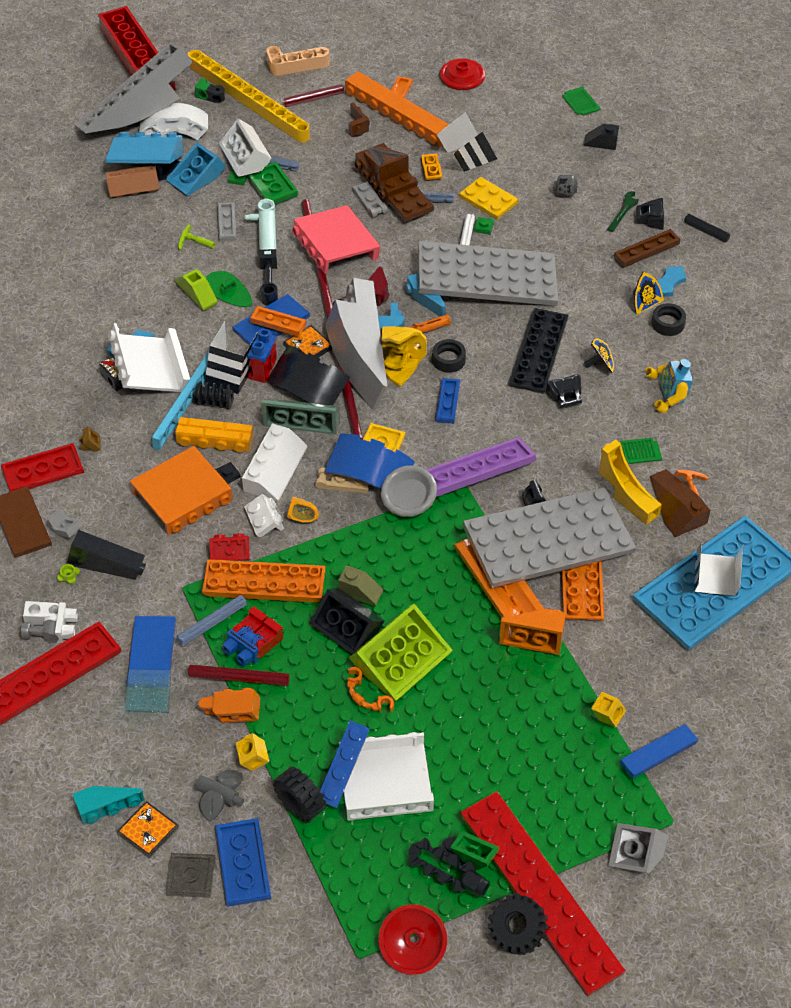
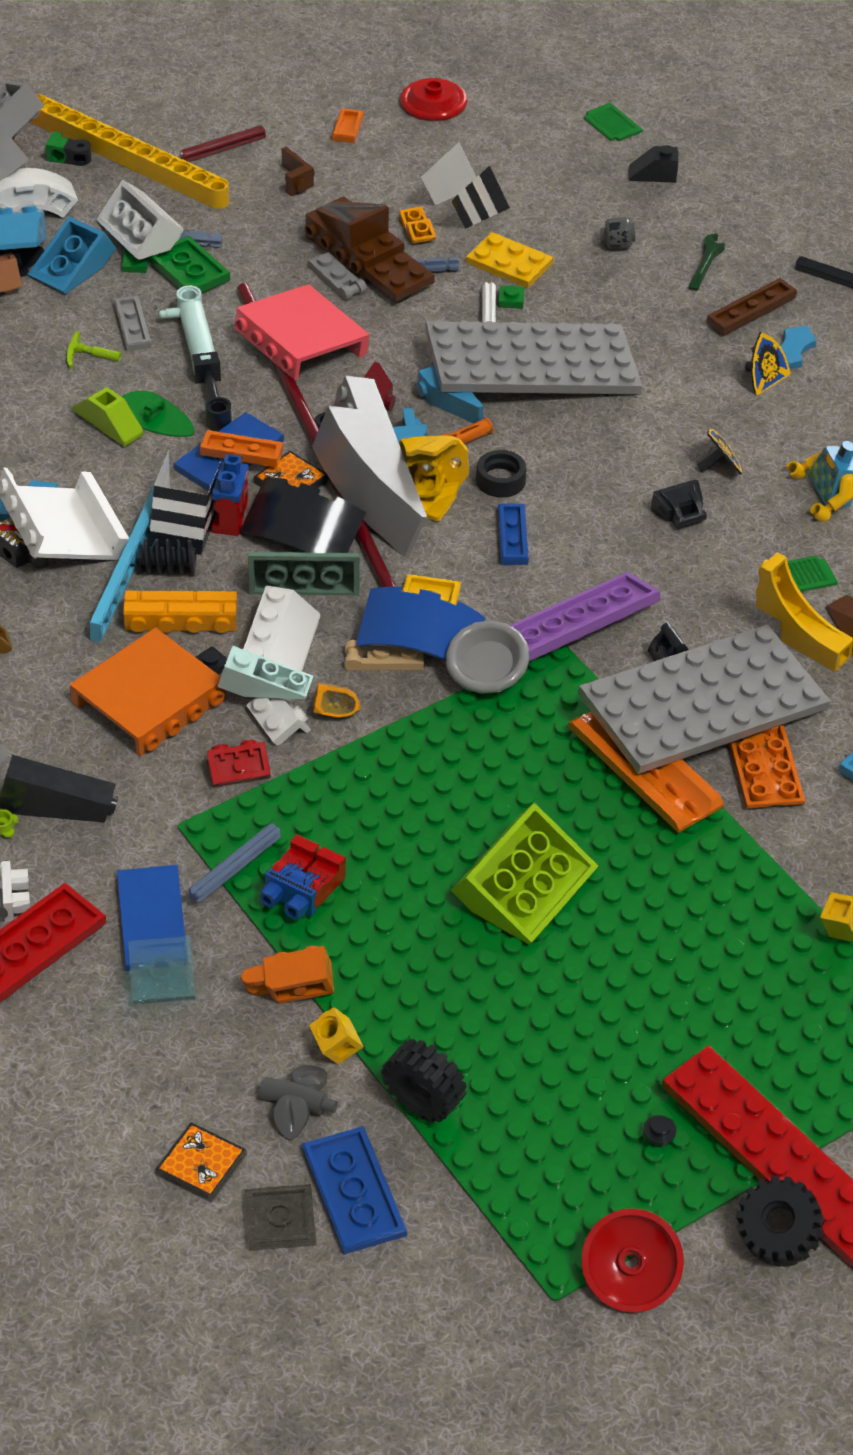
camera: 10 degrees left, 5 degrees down
(103, 801) = (125, 1129): teal slope -> none
(238, 674) = (291, 932): dark red axle -> none
(255, 490) = (262, 678): none -> light aqua slope
(264, 580) = (300, 801): orange plate -> none
(296, 61) = (187, 100): light nougat beam -> none
(343, 763) = (479, 1029): blue plate -> none
(345, 620) = (434, 841): black slope -> none
(359, 699) = (476, 946): orange piece -> none
(360, 586) = (443, 793): olive slope -> none
(389, 778) = (539, 1045): white panel -> none
(395, 107) = (349, 150): orange brick -> none
(470, 880) = (698, 1170): black sword -> none
(474, 850) = (695, 1129): green slope -> none
(534, 630) = (714, 823): orange slope -> none
(539, 350) = (629, 454): black plate -> none
(651, 213) = (748, 260): black piece -> none
(665, 328) = (804, 409): black tyre -> none

